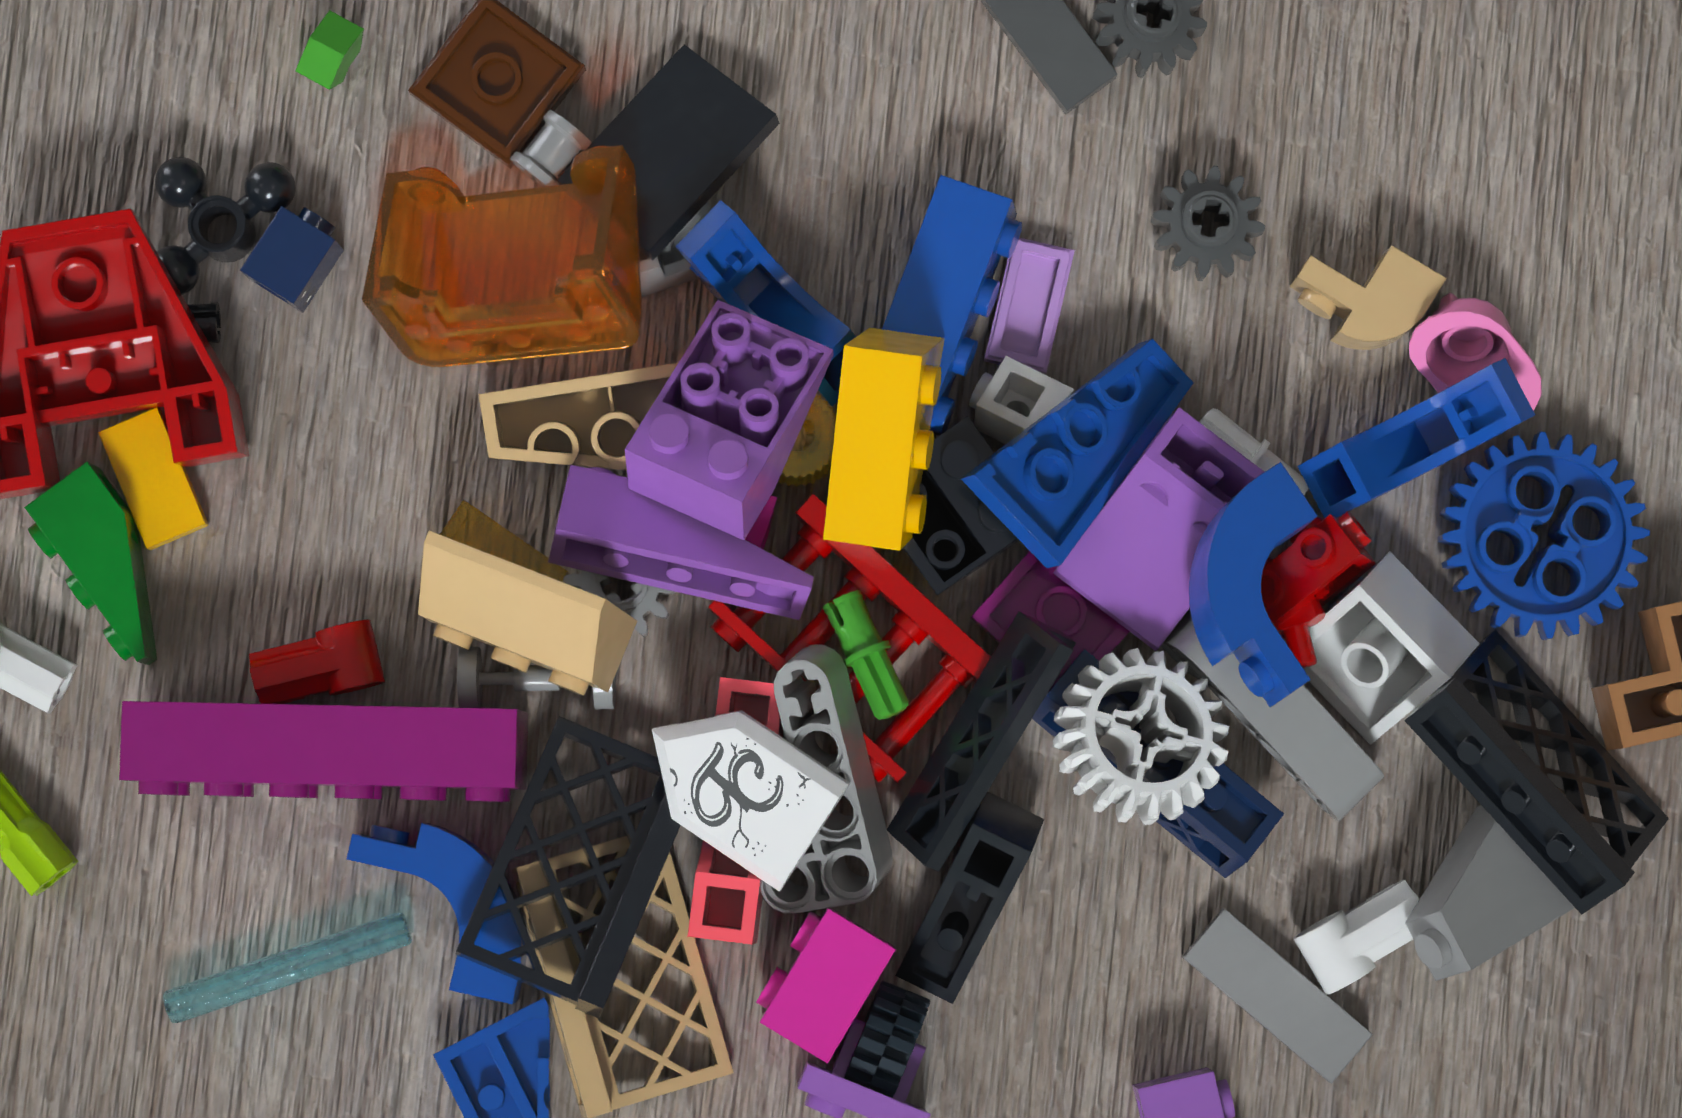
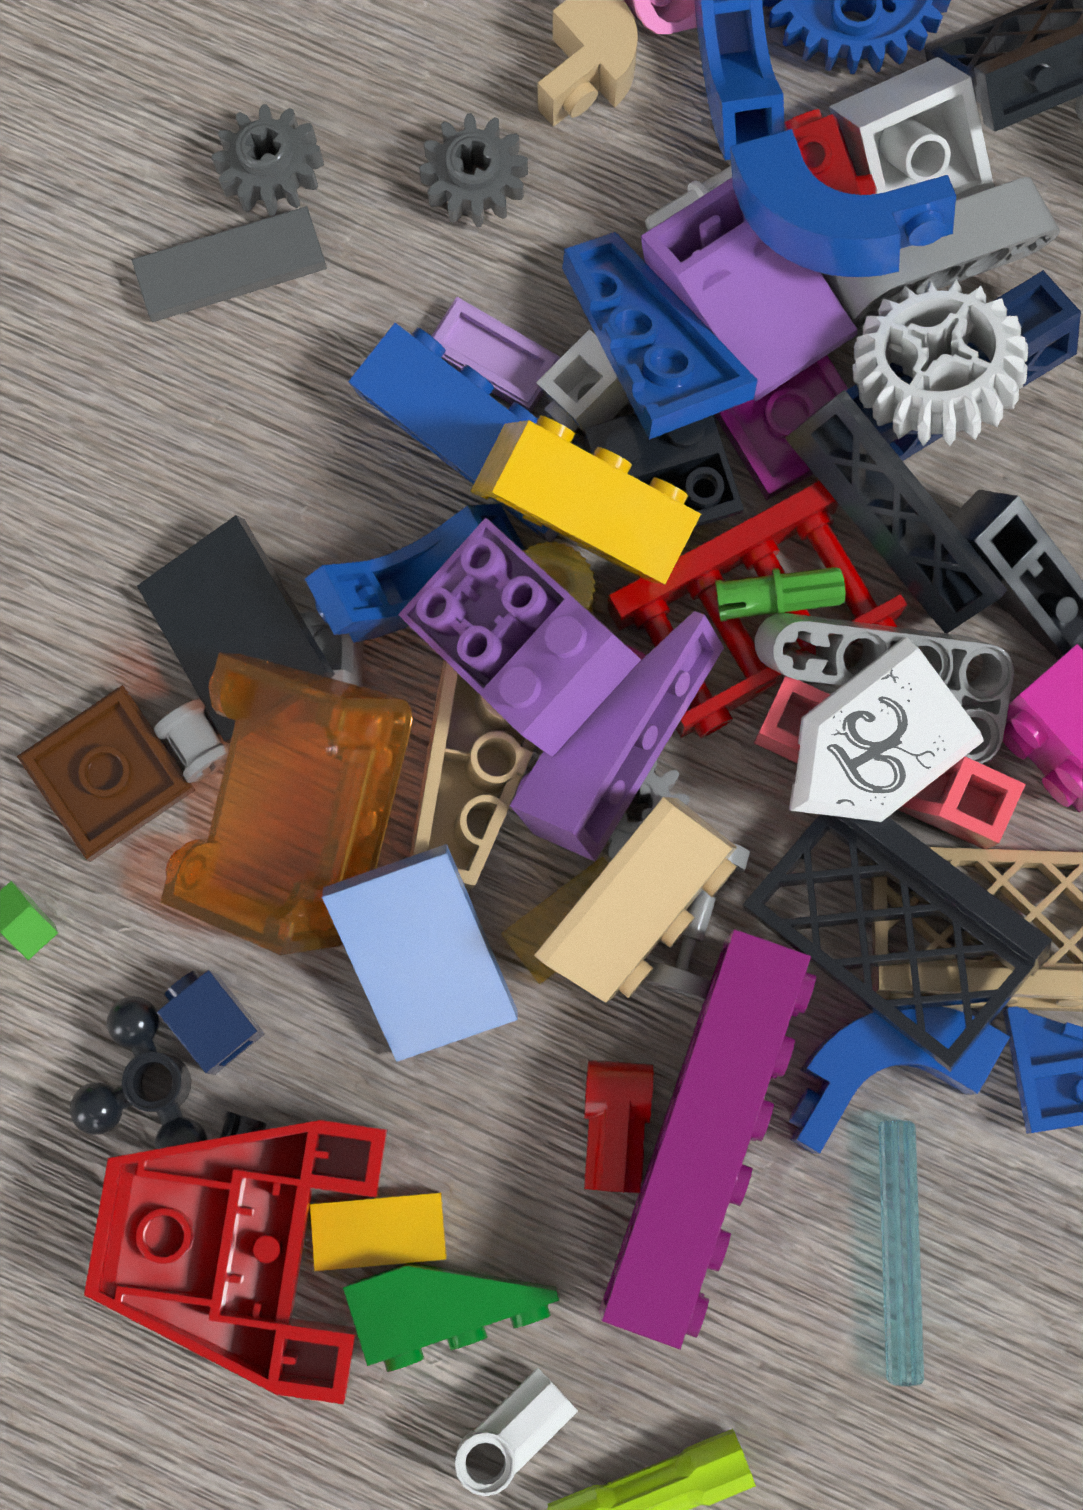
camera: 70 degrees left, 5 degrees down
(412, 429) = (420, 953): none -> tile

